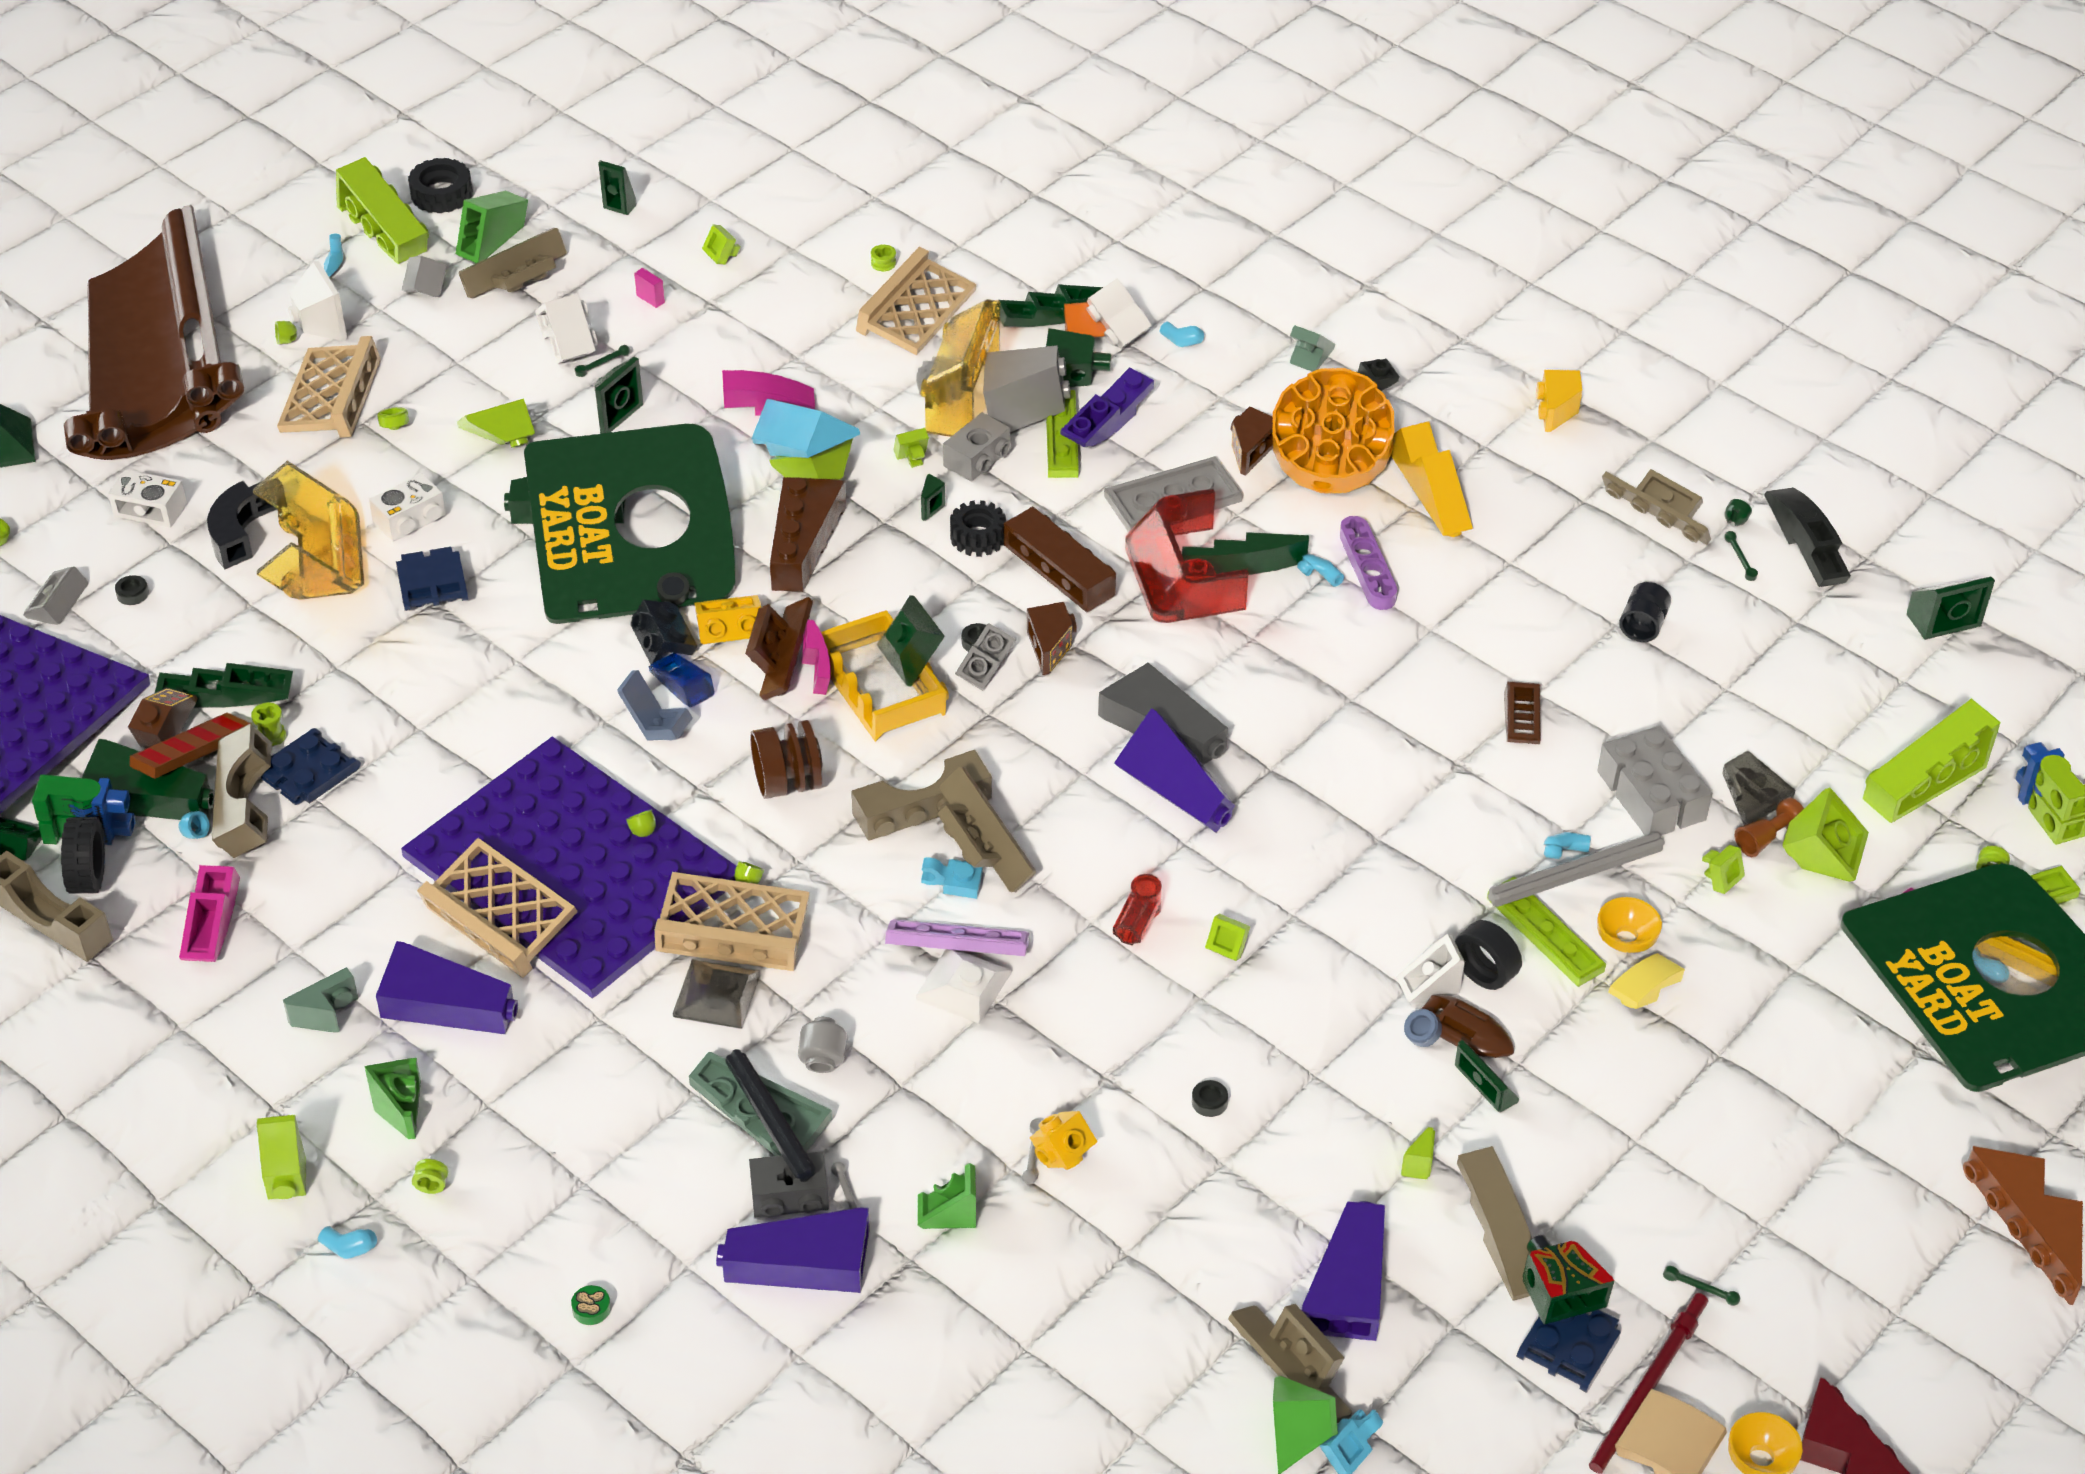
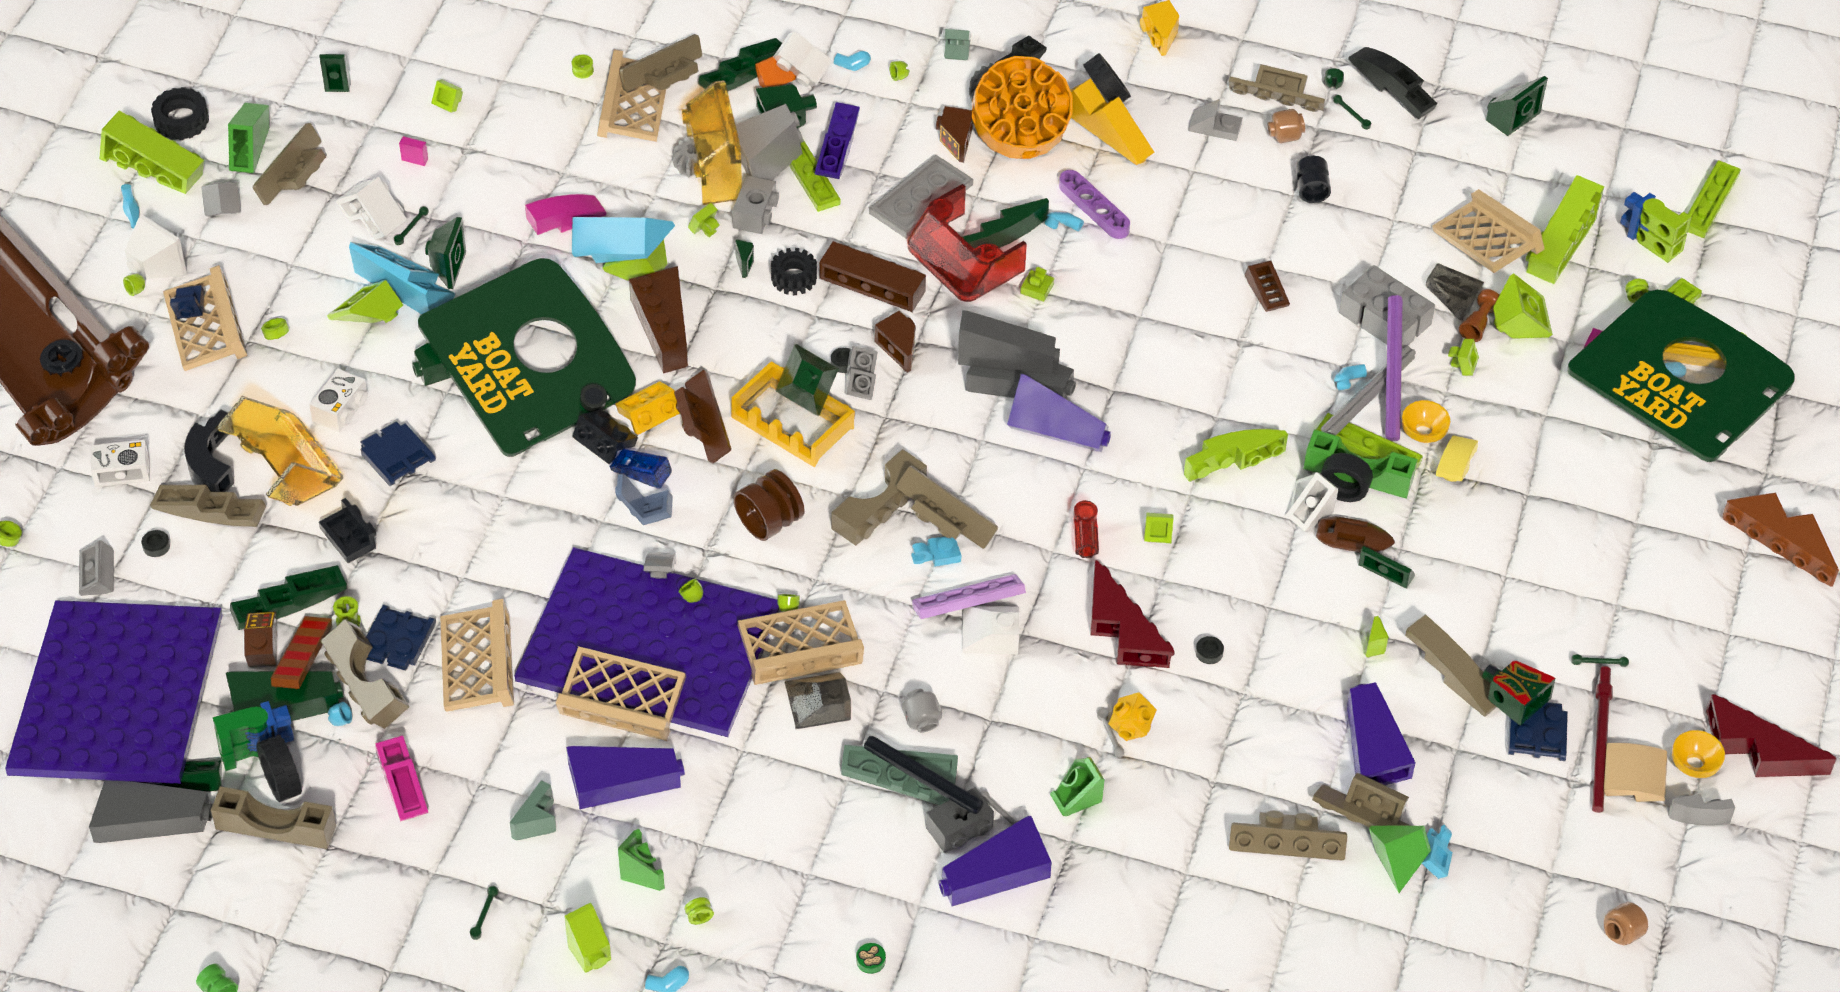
camera: 25 degrees left, 5 degrees up
(150, 378) = (66, 349): none -> black gear
(181, 1109) = (475, 932): none -> dark green hinge
(205, 569) = (200, 504): none -> dark tan slope
(320, 364) = (188, 302): none -> dark blue bracket
(327, 643) = (349, 532): none -> black bracket
(397, 822) = (499, 649): none -> tan fence
(551, 399) = (409, 280): none -> medium azure slope
(626, 782) = (659, 564): none -> light grey slope
(816, 653) = (736, 411): dark pink slope -> none
(964, 278) = (664, 66): none -> dark tan bracket
(1115, 1020) = (1119, 617): none -> dark red slope
(1152, 672) = (1004, 345): none -> dark grey slope
(1172, 1350) = (1288, 836): none -> dark tan bracket
(1227, 358) = (898, 70): none -> lime hinge
(1249, 627) = (1037, 284): none -> lime tile
(1383, 880) = (1239, 447): none -> lime slope
(1422, 1028) = (1326, 546): sand blue tile -> none
(1453, 431) = (1106, 78): none -> black tyre
(1548, 971) = (1390, 474): none -> bright green arch
(1563, 519) = (1210, 122): none -> light grey slope
(1619, 849) = (1394, 366): none -> medium lavender axle
(1646, 545) = (1286, 126): none -> medium nougat head
(1852, 727) = (1502, 220): none -> tan fence

